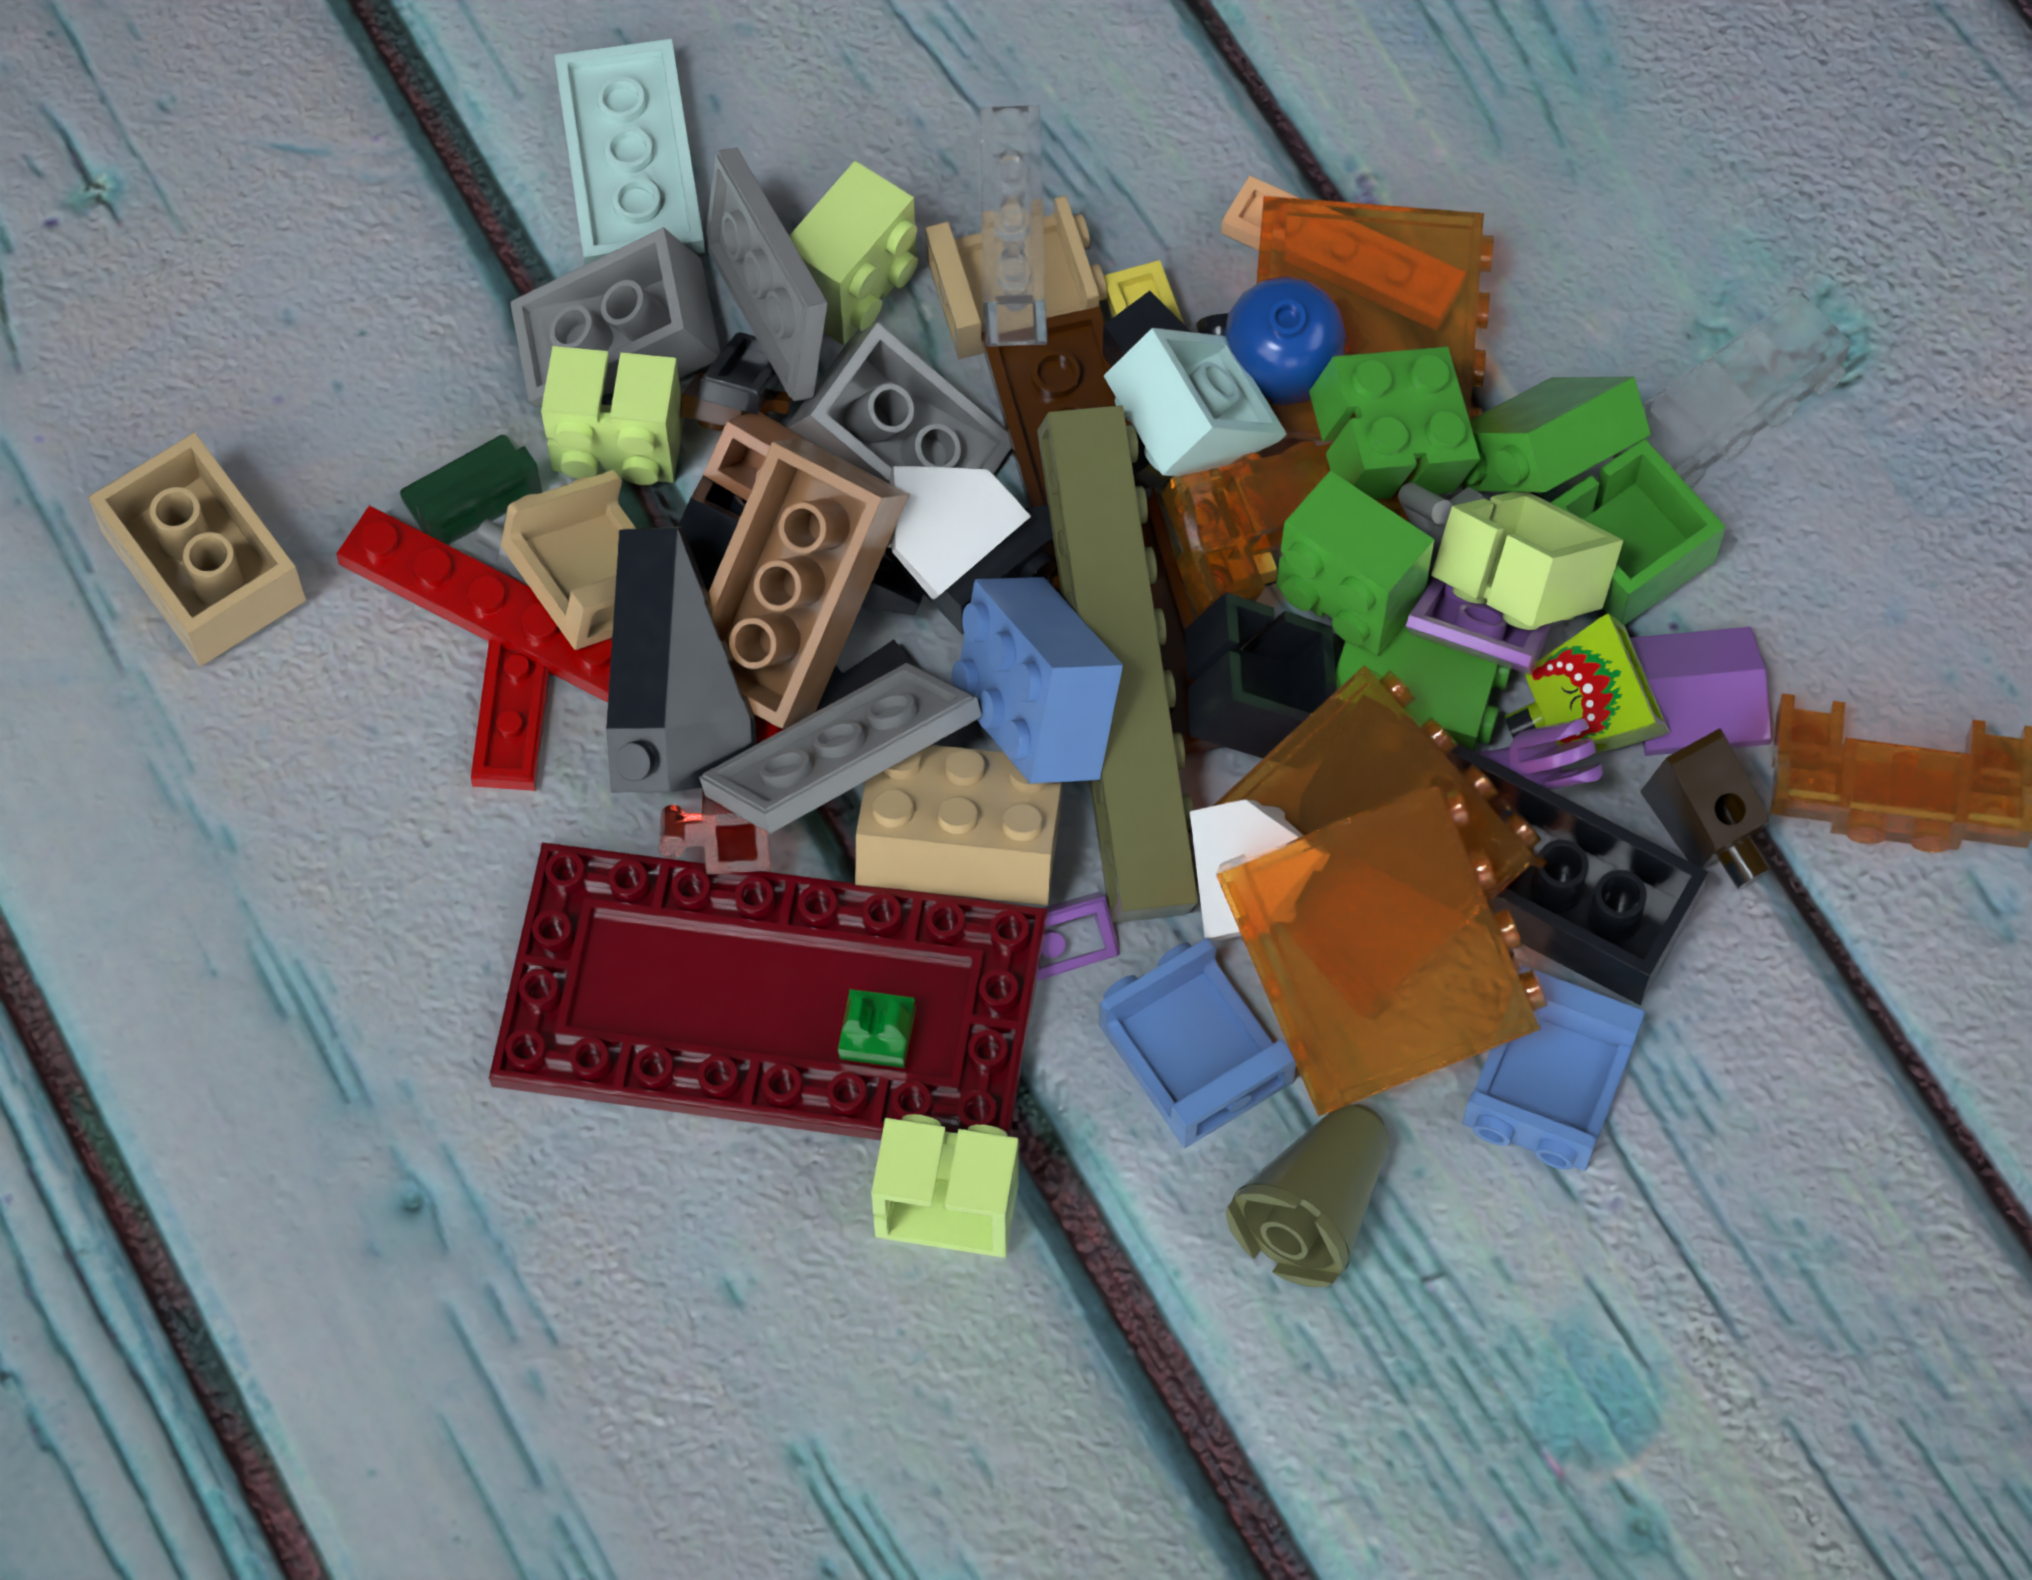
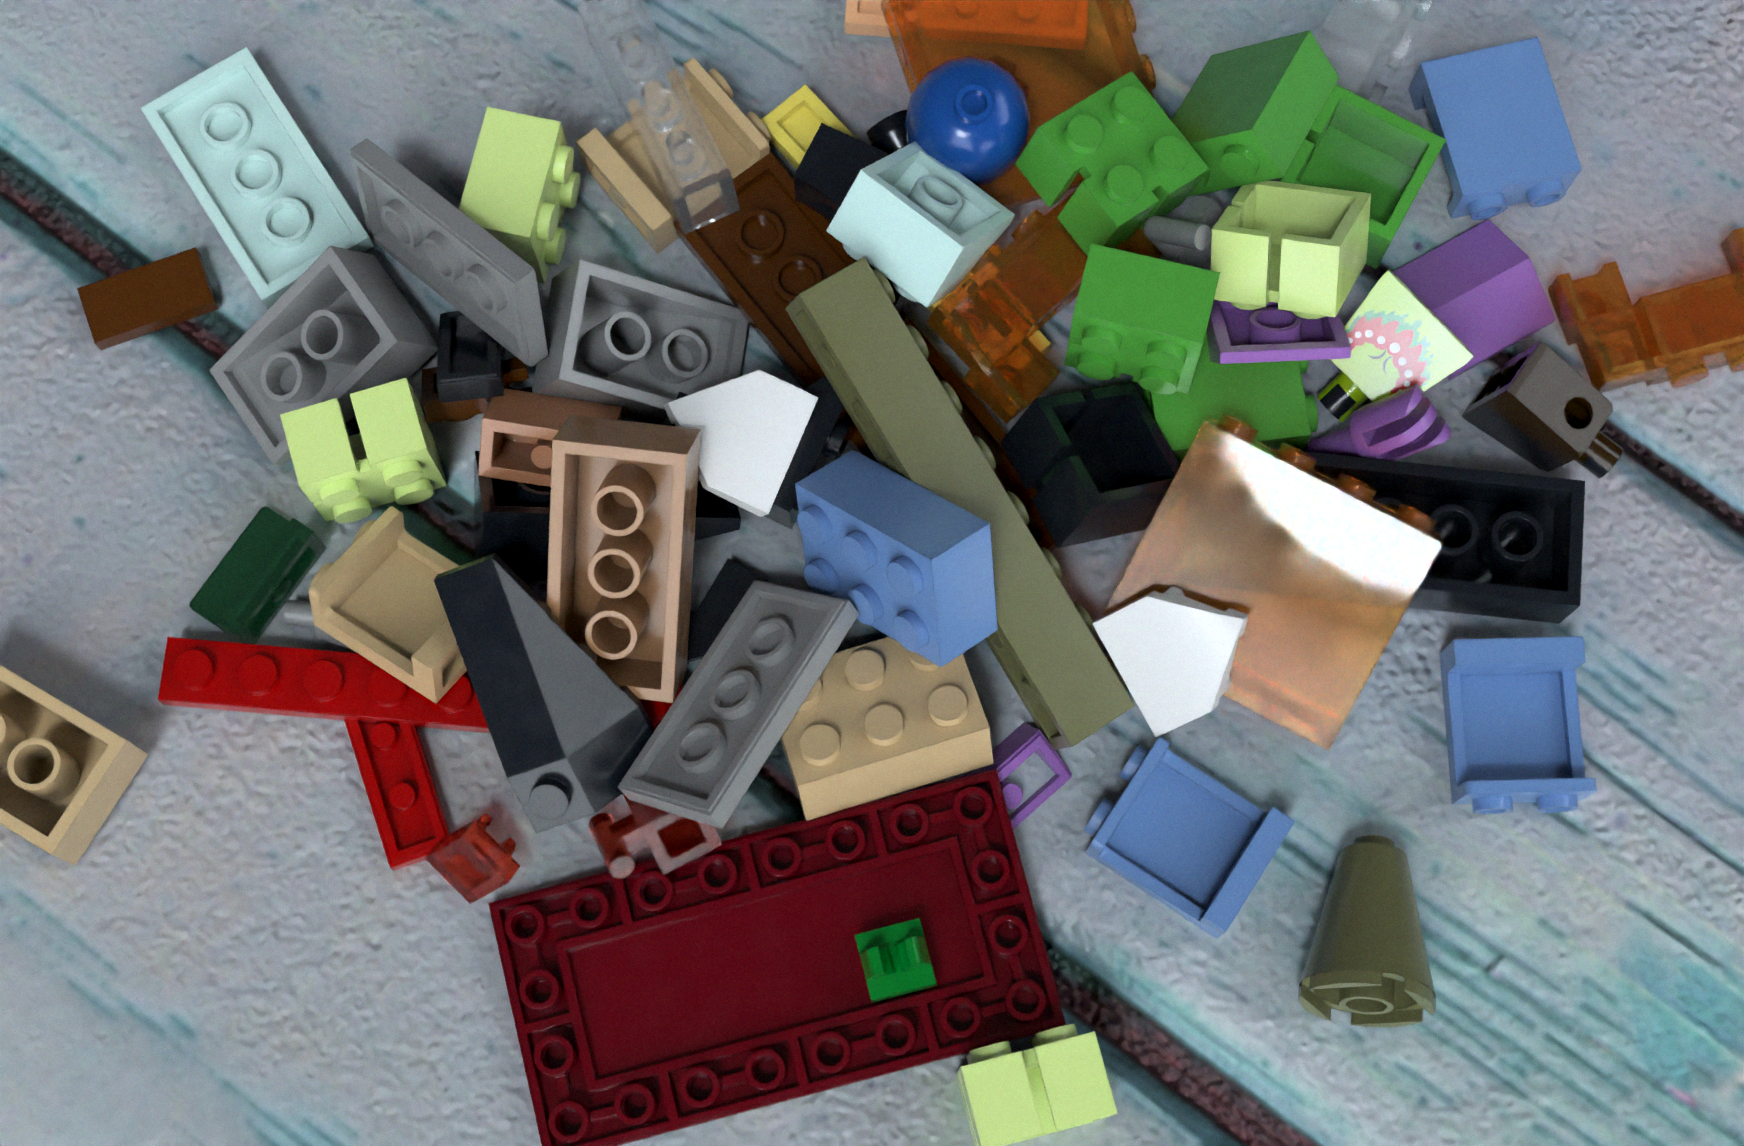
camera: 25 degrees left, 10 degrees up
(485, 220) = (147, 298): none -> reddish brown tile
(546, 796) = (474, 860): none -> clear red tile
(1383, 947) = (1342, 690): clear orange panel -> none
(1792, 546) = (1499, 128): none -> medium blue panel

